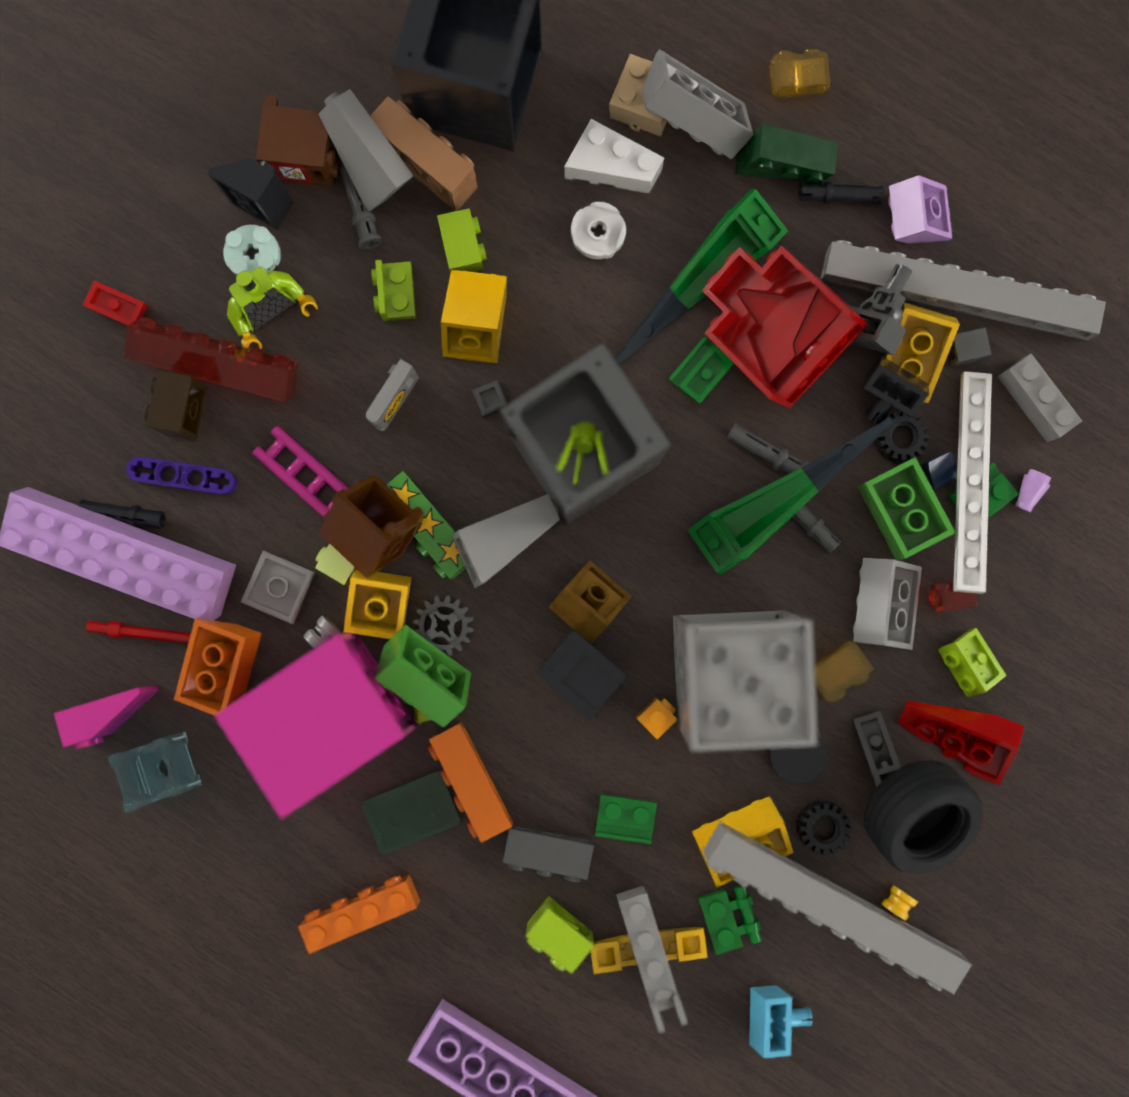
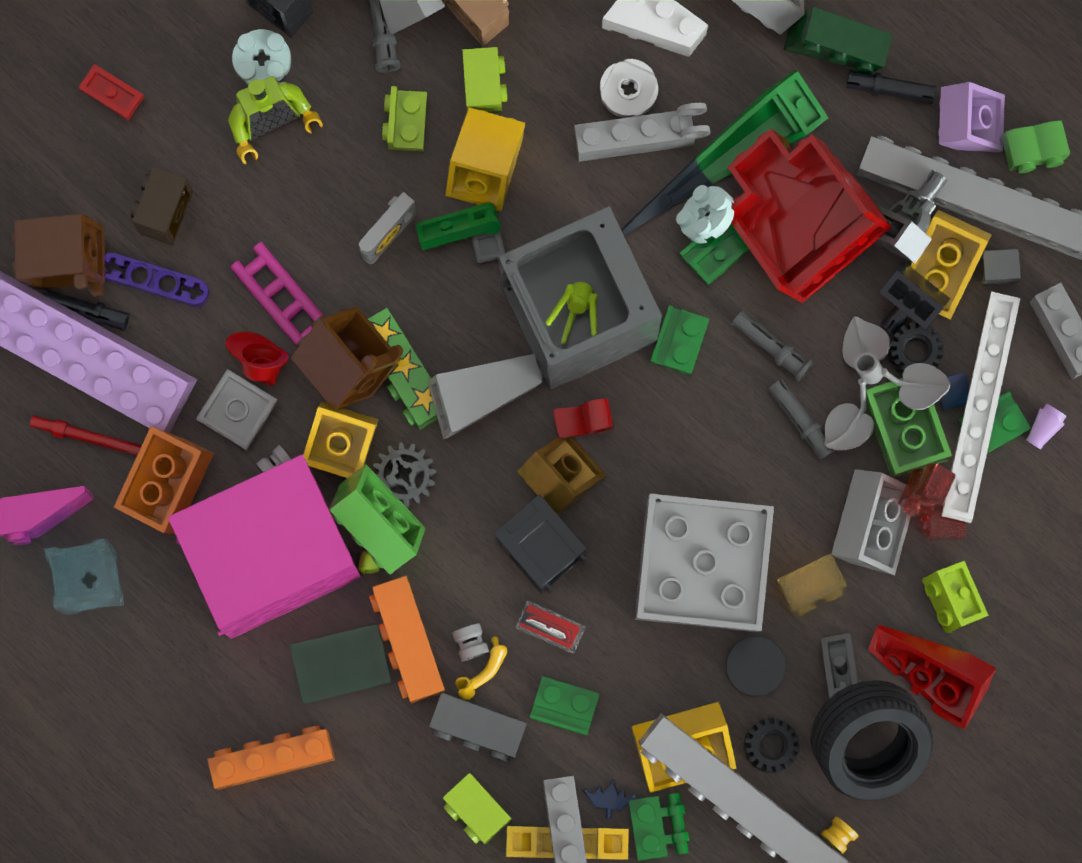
camera: 10 degrees right, 5 degrees down
(85, 464) = (60, 252): none -> reddish brown container
(211, 359) = (204, 163): clear red brick -> none
(289, 534) = (258, 356): none -> red piece
(334, 565) = (301, 395): yellowish green brick -> none
(459, 383) = (458, 225): none -> green plate
(532, 780) = (473, 648): none -> light grey wheel
(555, 784) = (467, 687): none -> yellow piece
(601, 747) = (550, 627): none -> slope
(602, 547) = (583, 420): none -> red panel
(616, 270) = (640, 133): none -> light grey hinge
(657, 716) = (613, 602): light orange brick -> none
(680, 899) = (609, 799): none -> dark blue piece
(682, 460) = (680, 340): none -> green plate
(684, 325) = (693, 219): none -> light aqua plate
(746, 524) = (735, 416): green plate -> none
(918, 471) = (862, 350): none -> light grey plant
(937, 569) = (926, 490): none -> clear red brick
(984, 228) = (1035, 146): none -> bright green brick

